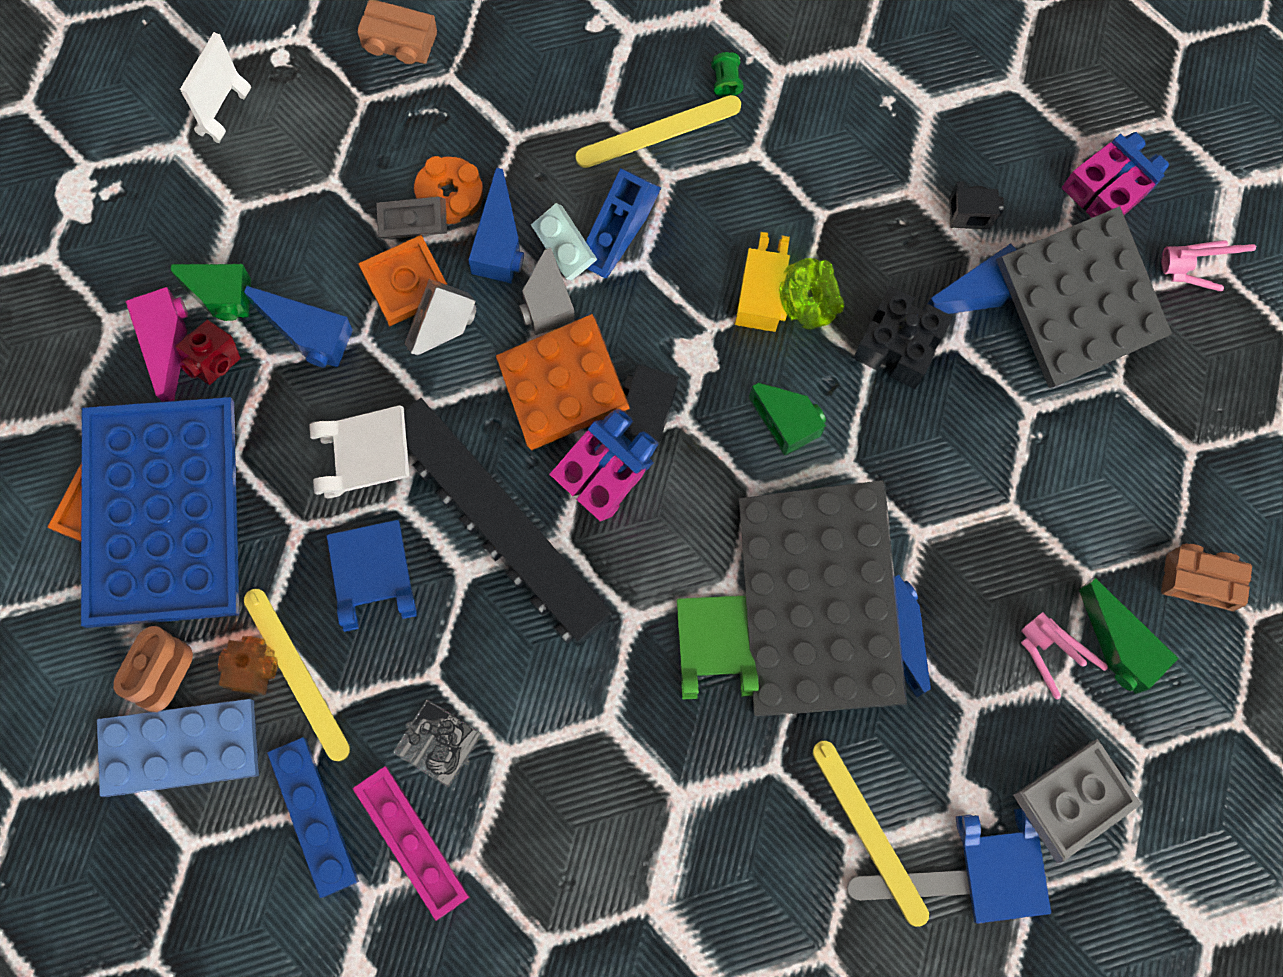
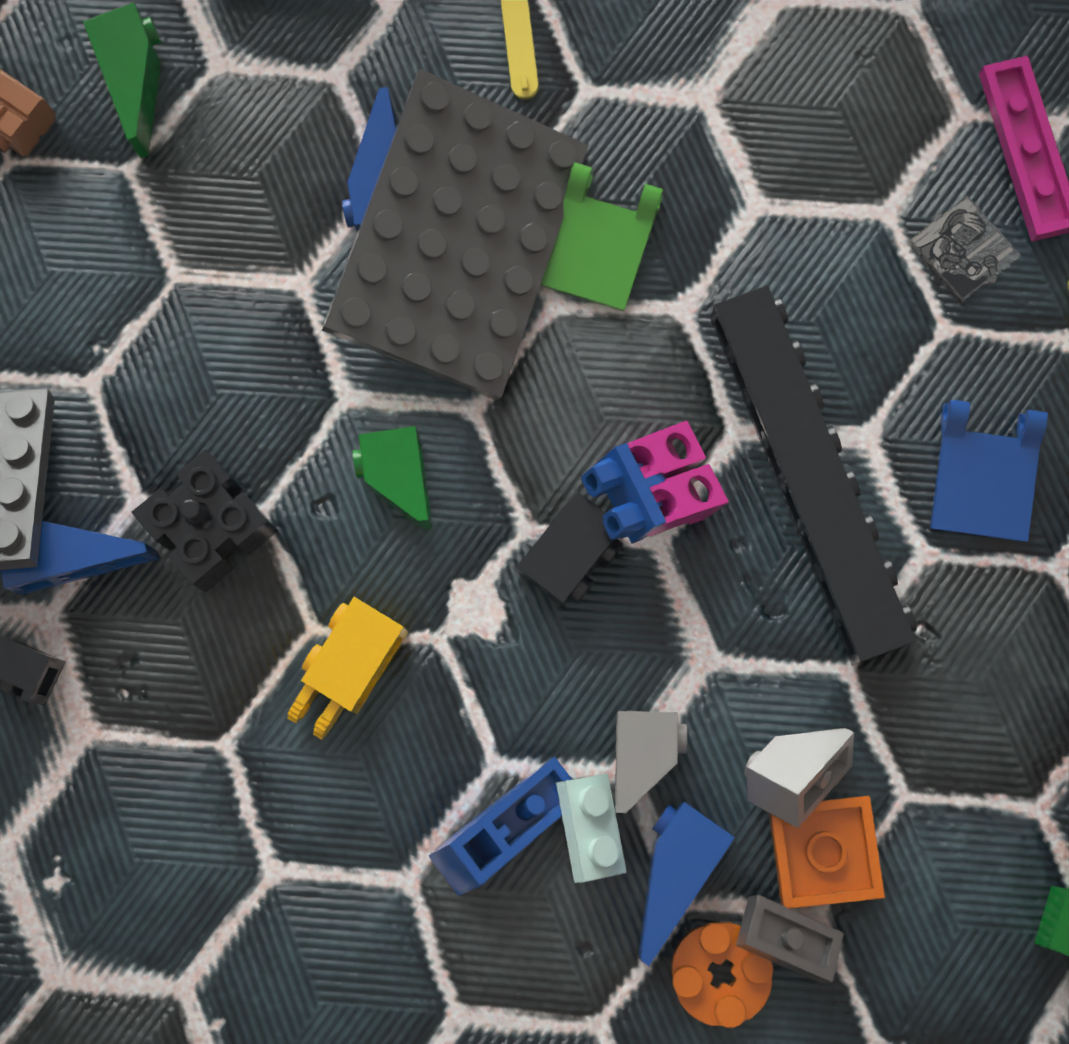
camera: 145 degrees left, 5 degrees up
(311, 330) = (983, 827): blue slope -> none
(366, 450) = (951, 620): white flag -> none
(561, 382) = (667, 622): orange plate -> none
(658, 131) = (393, 955): light yellow piece -> none
(727, 74) = (262, 1004): green bush -> none
(826, 298) = (278, 609): clear neon green plate -> none
(1045, 632) = (217, 116): bright pink plant -> none

